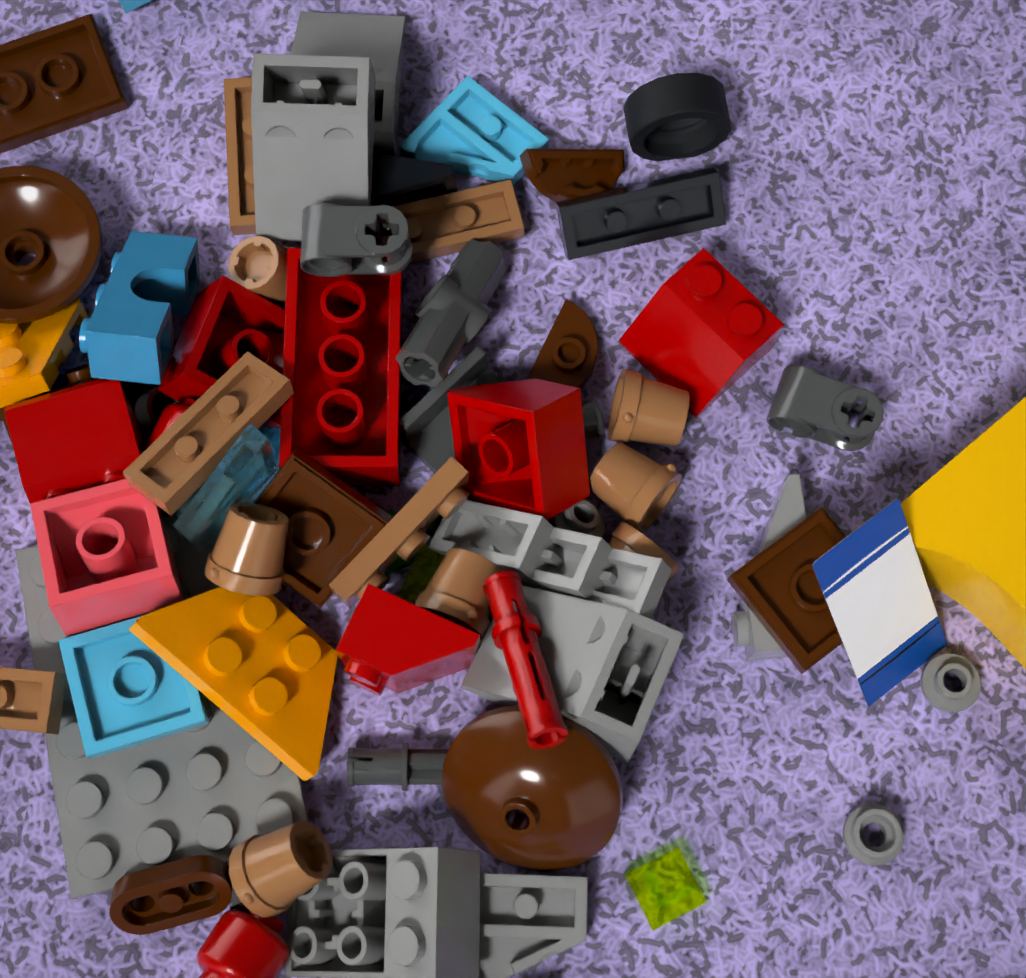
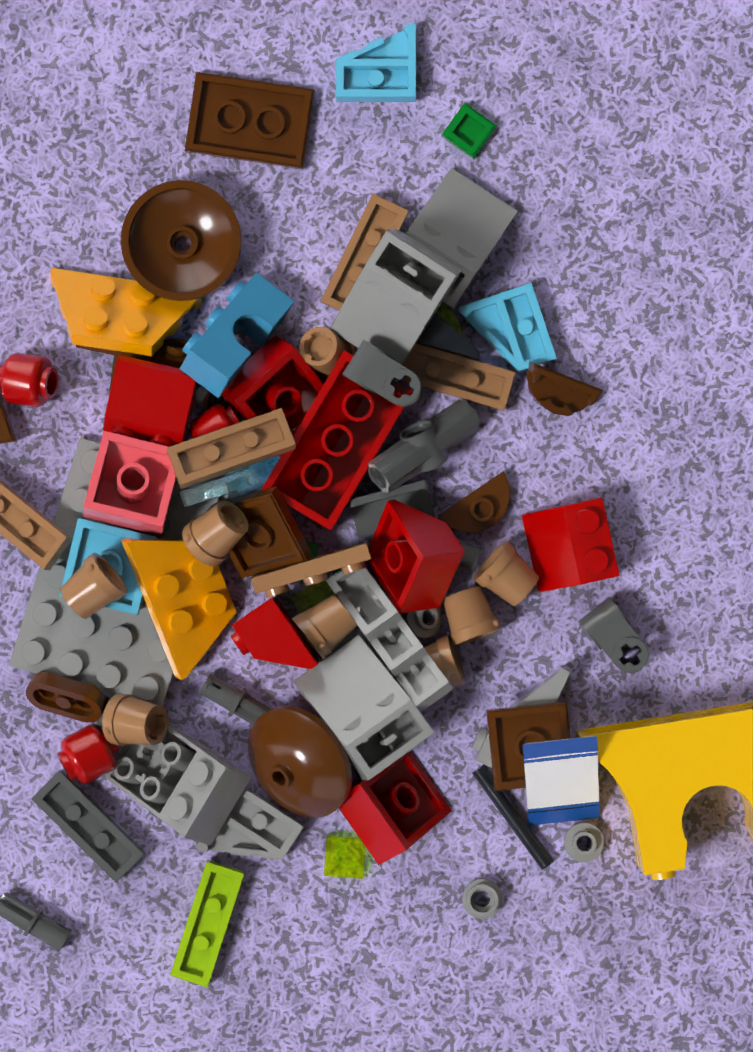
camera: 30 degrees right, 15 degrees up
(121, 711) = (93, 586): none -> medium nougat piece
(518, 636) = (339, 677): red pin -> none
(641, 213) = (584, 442): black plate -> none
(677, 117) = (644, 396): black tyre -> none
(688, 783) = (394, 808): none -> red slope
(843, 706) = (513, 818): none -> black bar

